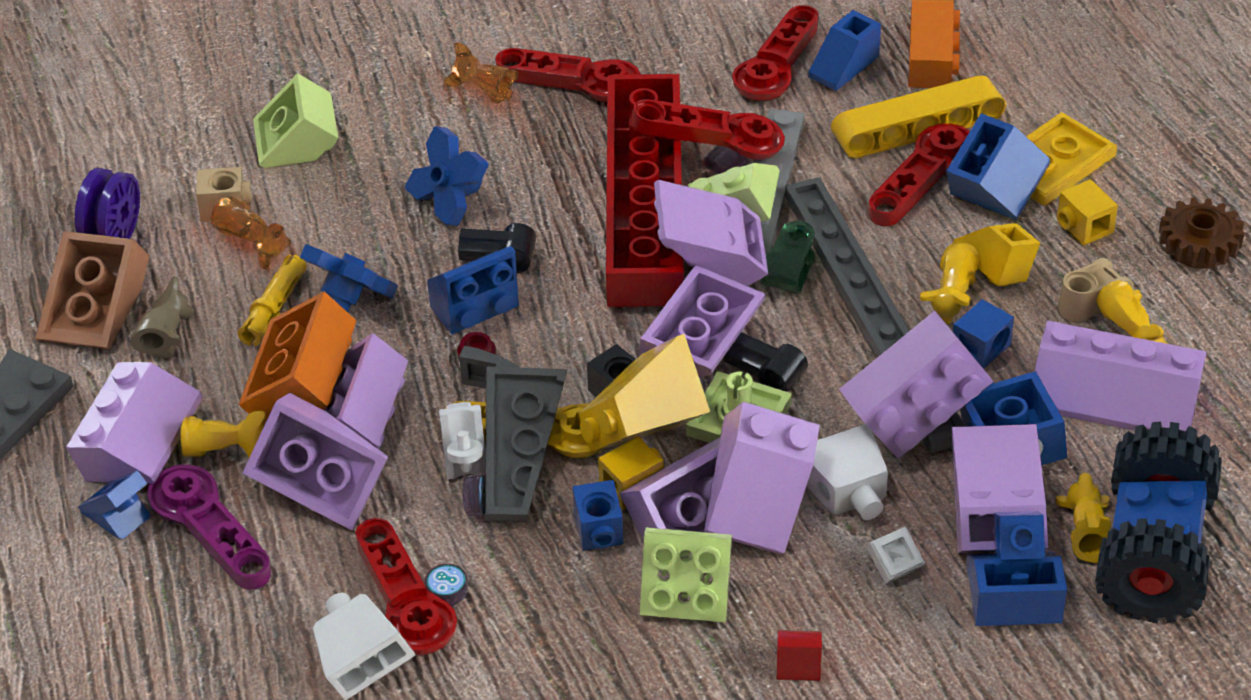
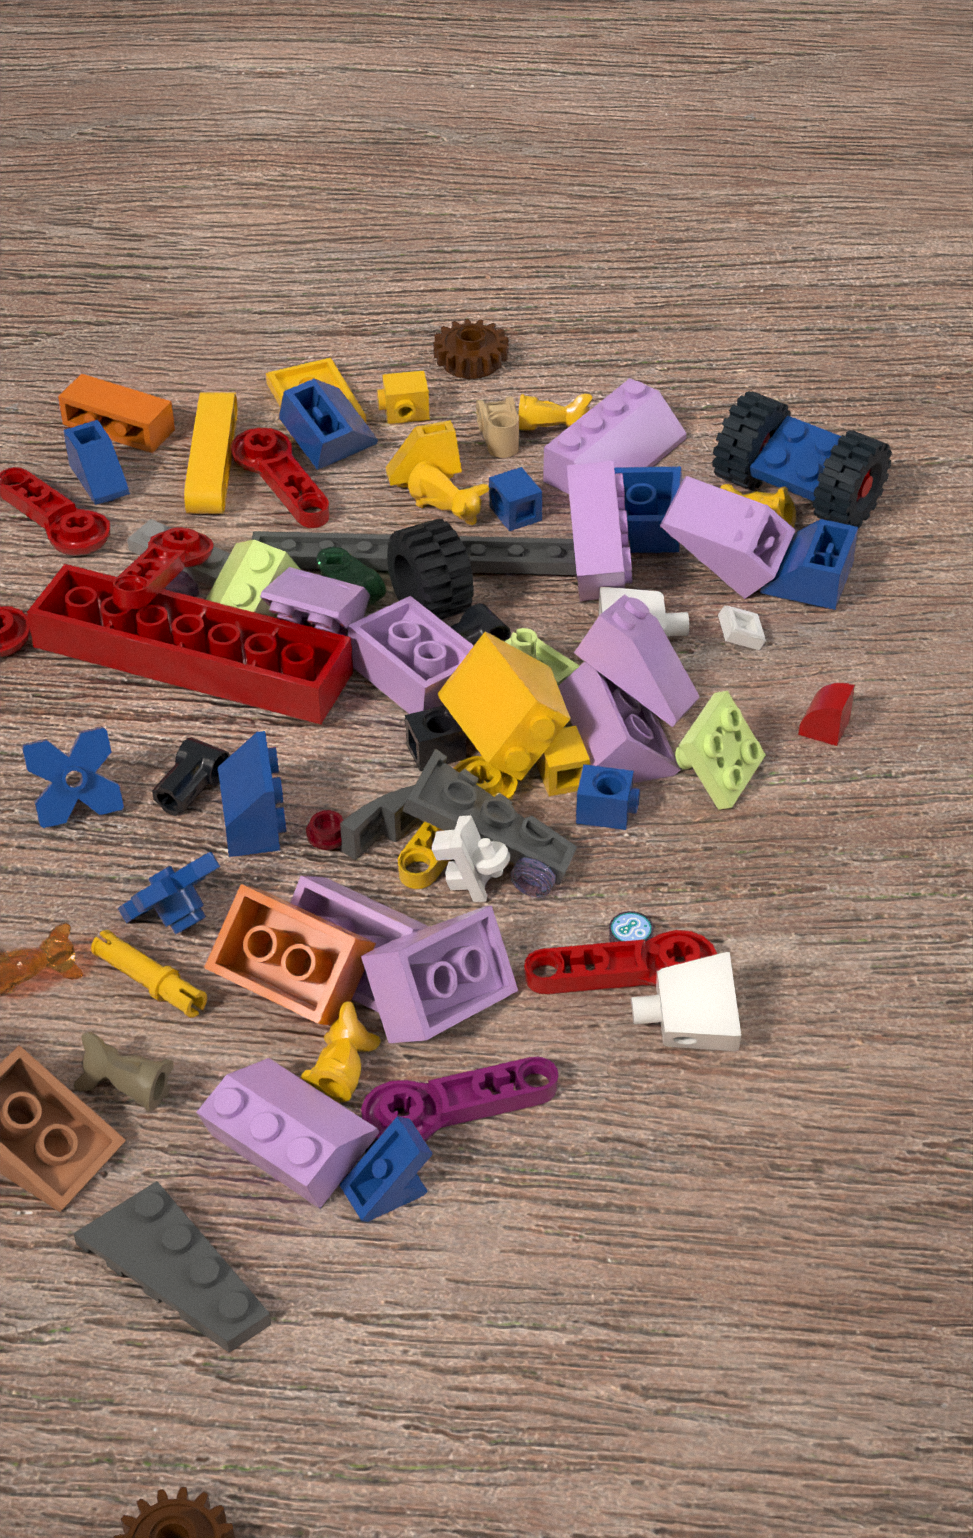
camera: 70 degrees left, 0 degrees up
(808, 297) = (431, 568): none -> black tyre
(1019, 535) = (796, 528): blue brick -> none

